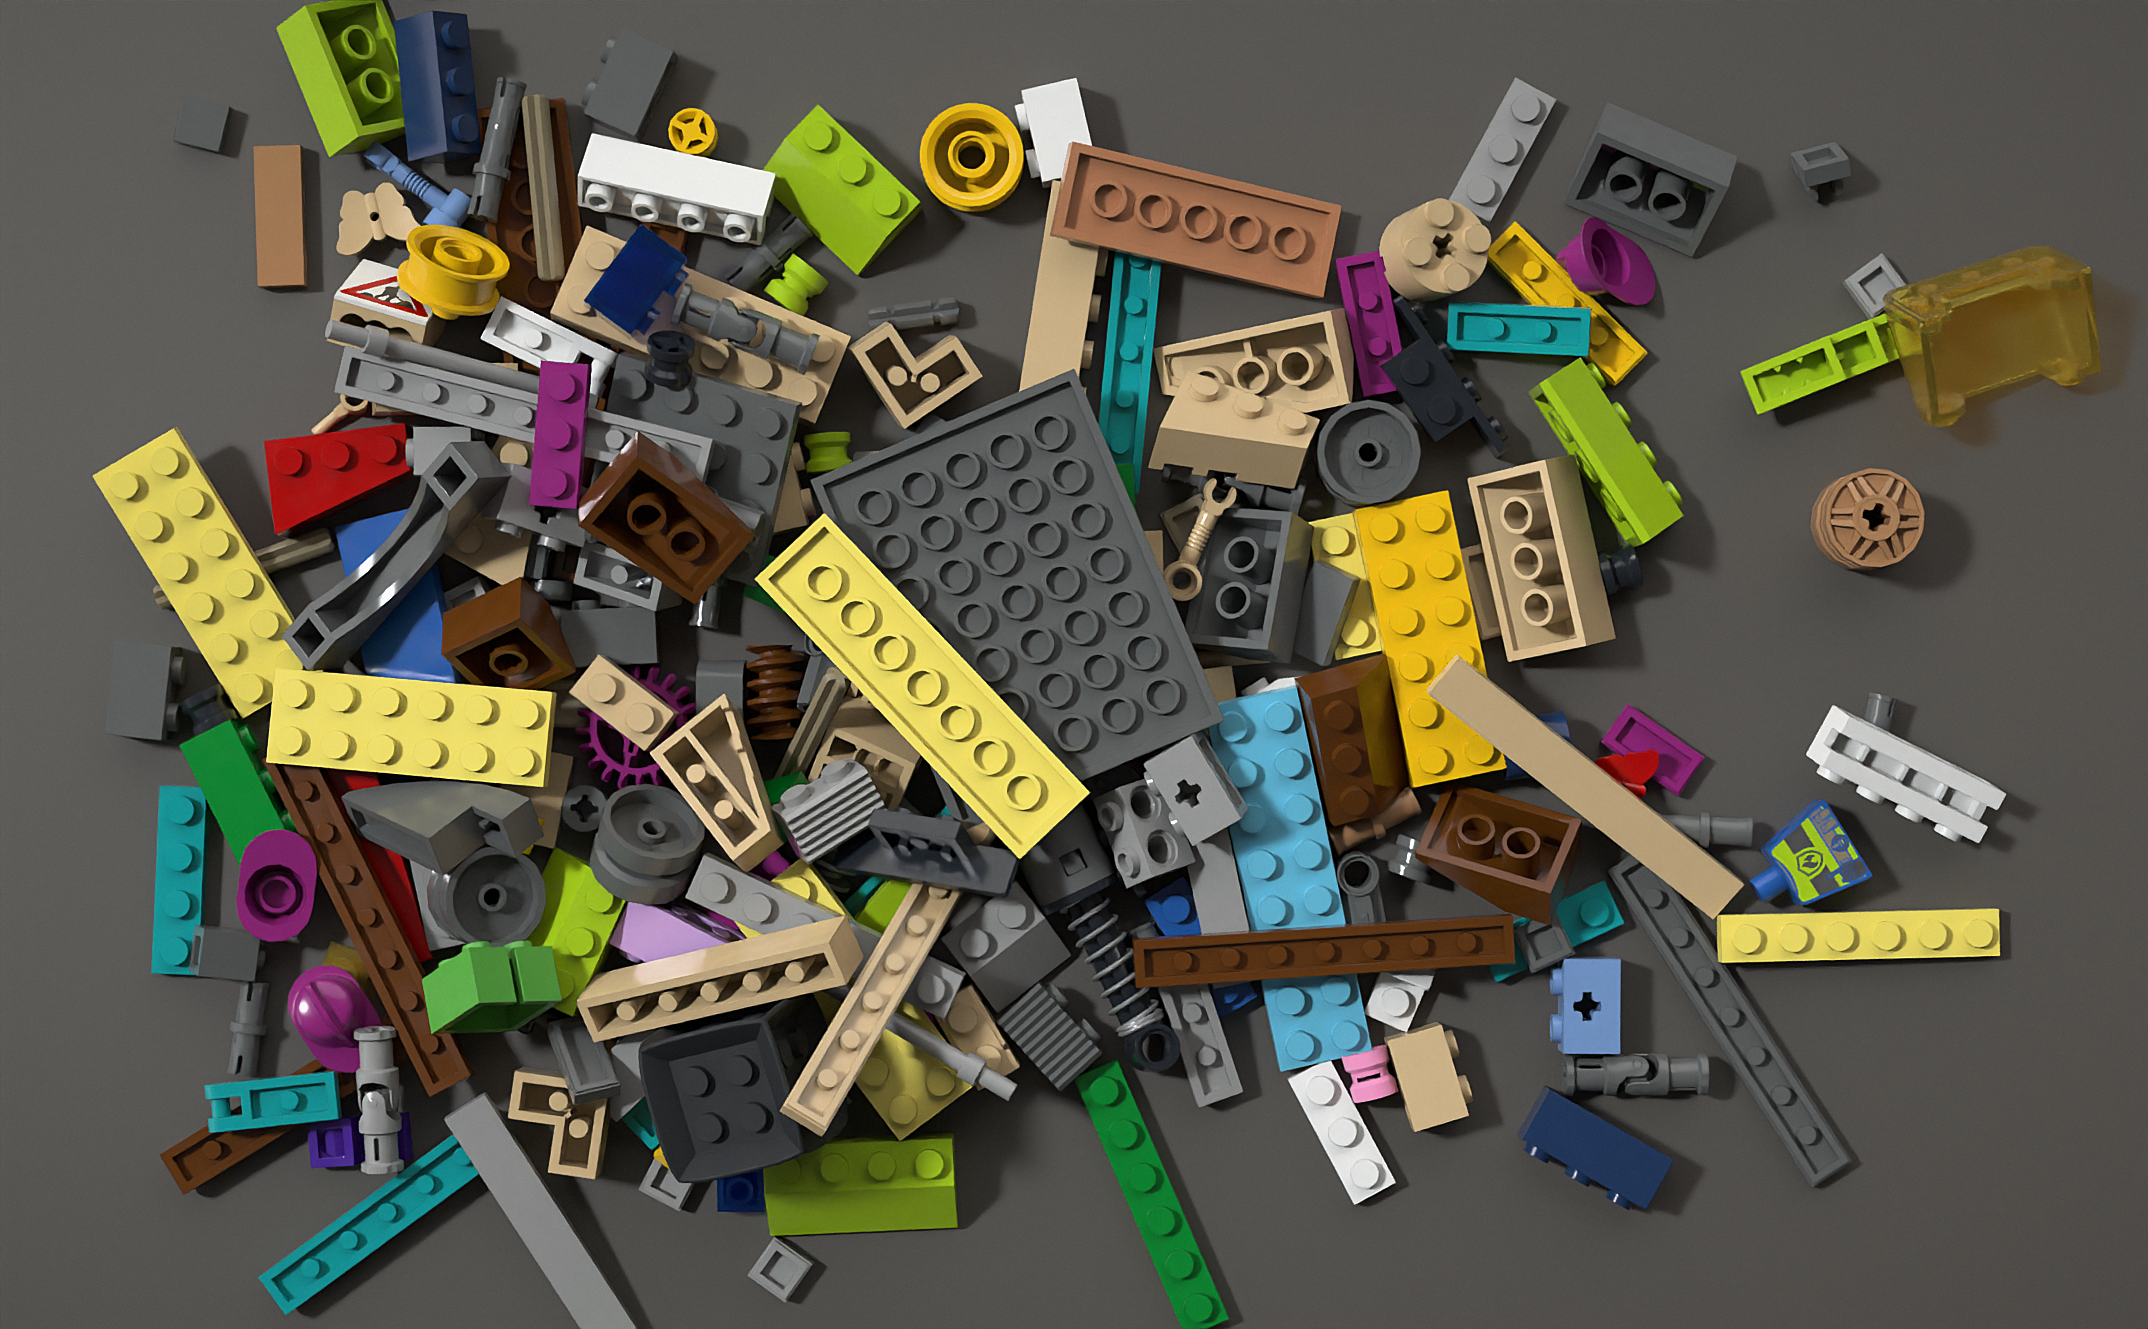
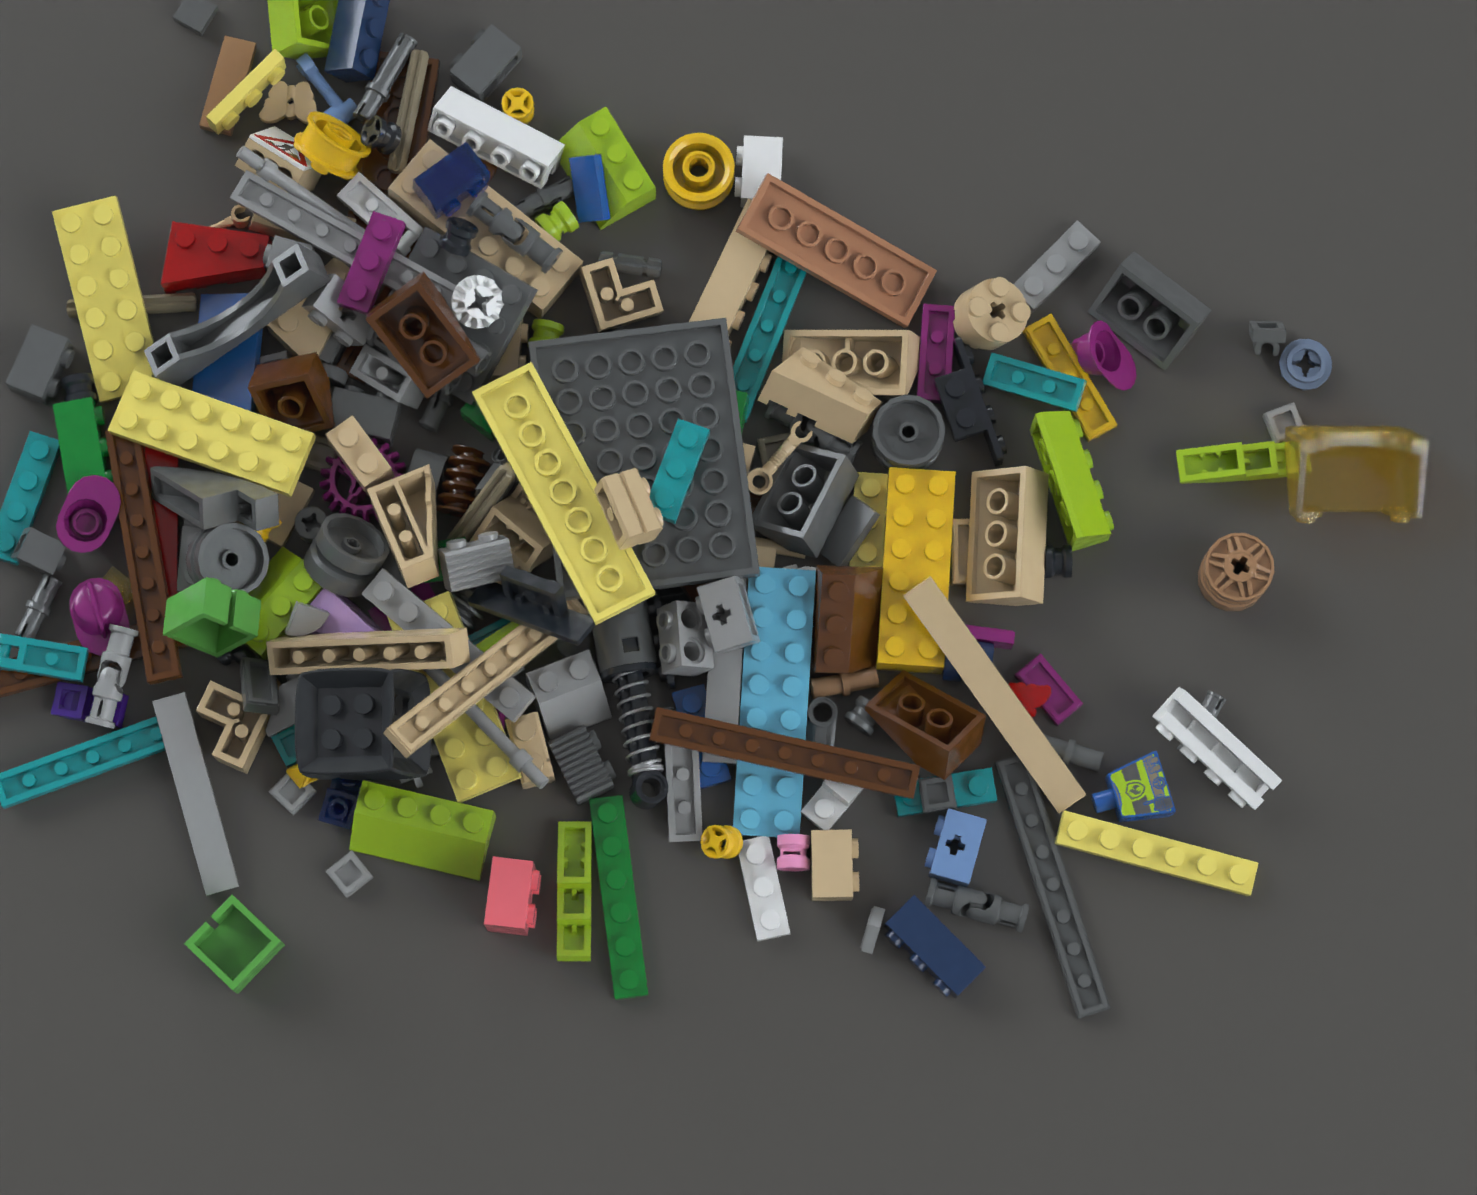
camera: 15 degrees right, 10 degrees down
(311, 224) = (247, 92): none -> light yellow plate
(516, 235) = (381, 135): none -> black wheel
(619, 951) = (305, 619): none -> light grey tile
(704, 449) = (464, 295): none -> white gear
(828, 226) = (589, 188): none -> blue tile
(1009, 1247) = (511, 895): none -> coral brick
(1021, 688) = (629, 508): none -> tan brick
(1069, 609) = (678, 468): none -> teal plate
(1089, 1207) = (574, 890): none -> lime slope
(1259, 1092) = (714, 837): none -> yellow wheel
(1506, 1145) = (872, 929): none -> light grey tile
(1556, 701) = (1000, 637): none -> magenta tile
(1894, 176) = (1316, 355): none -> sand blue gear

